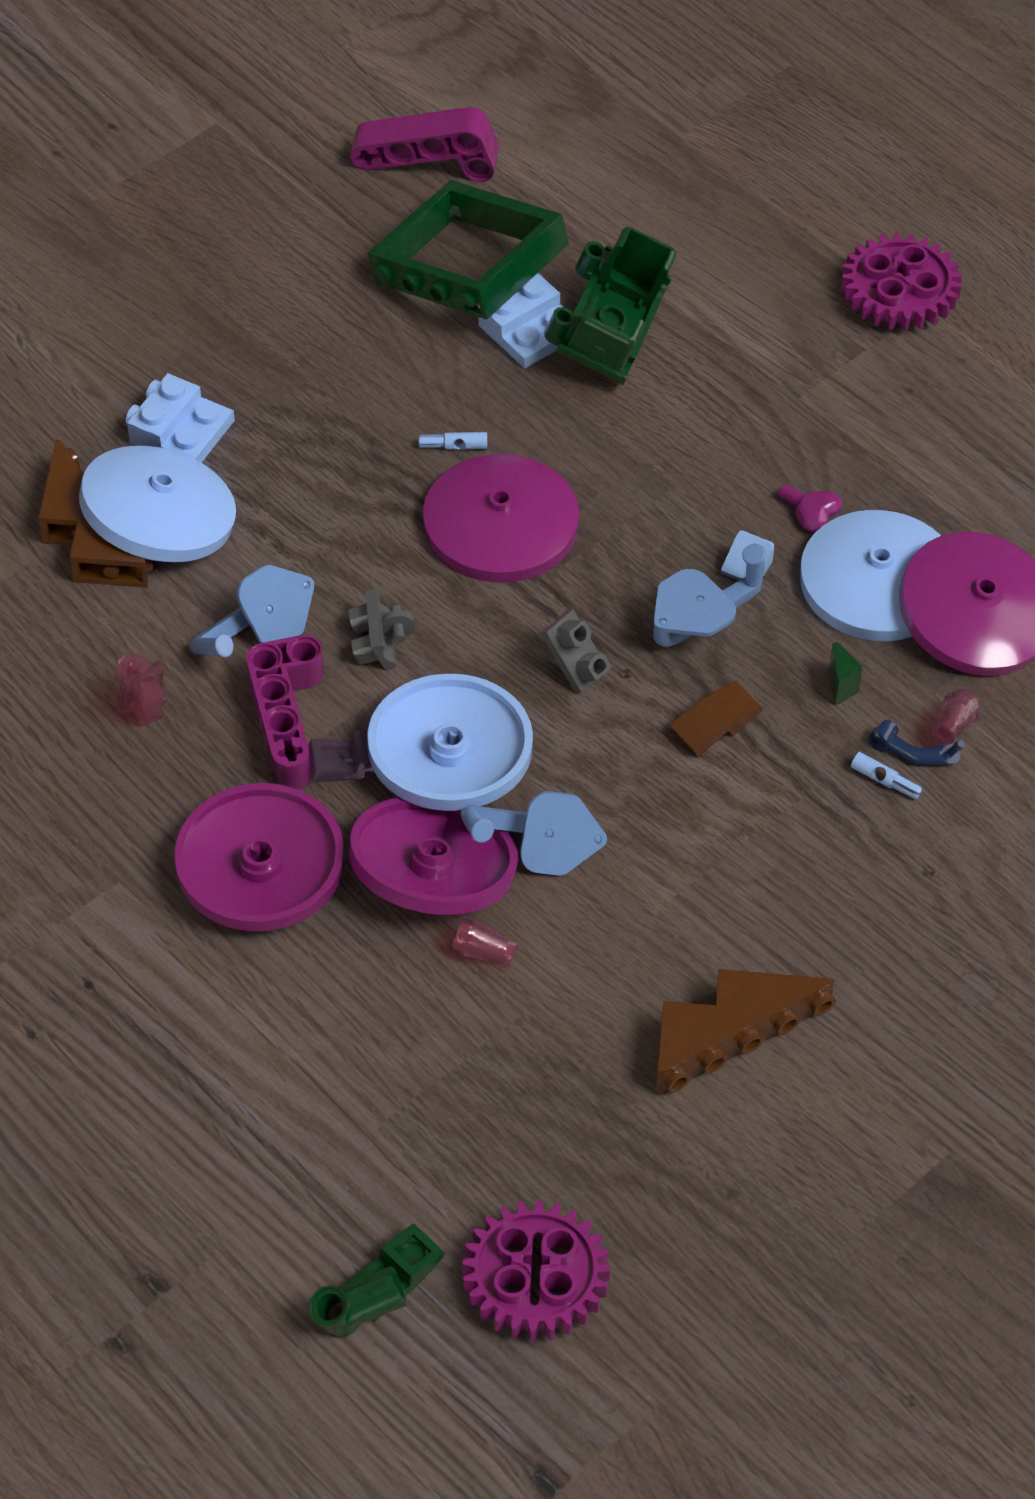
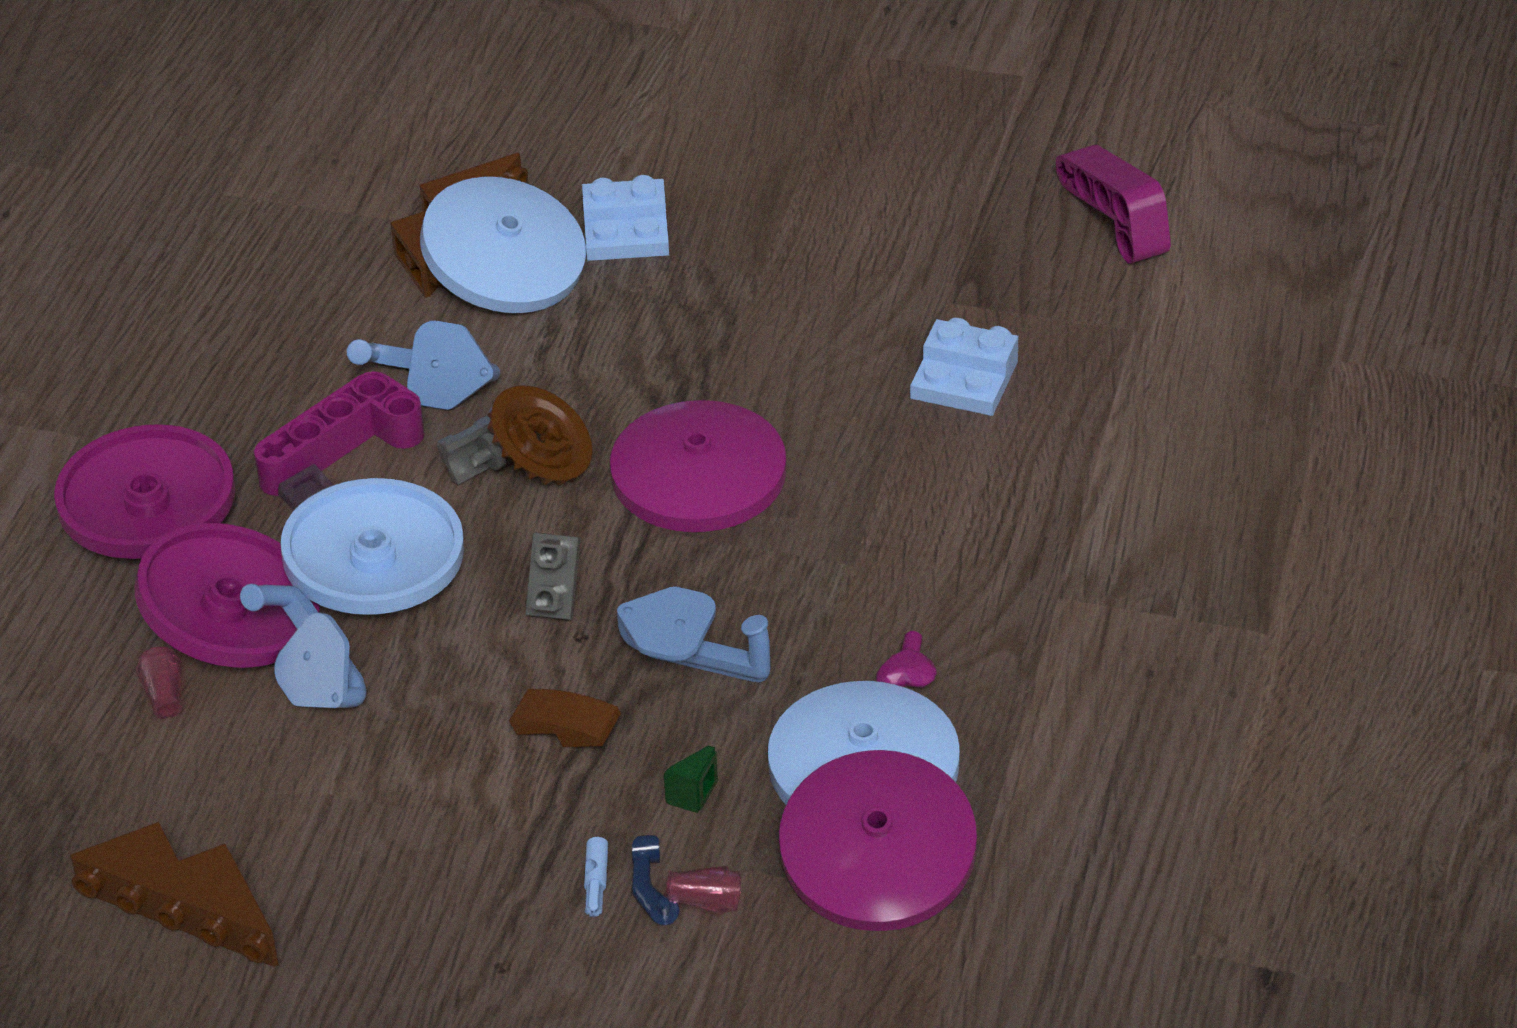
camera: 60 degrees right, 10 degrees down
(140, 688) = (278, 334): clear pink hips -> none
(409, 586) = (565, 438): none -> reddish brown gear
(471, 440) = (768, 394): light blue pin -> none
(539, 229) = (992, 307): dark green window -> none
(615, 305) = (1016, 409): dark green container -> none
(734, 565) = (793, 652): light blue slope -> none
(901, 281) = (1283, 592): magenta gear -> none

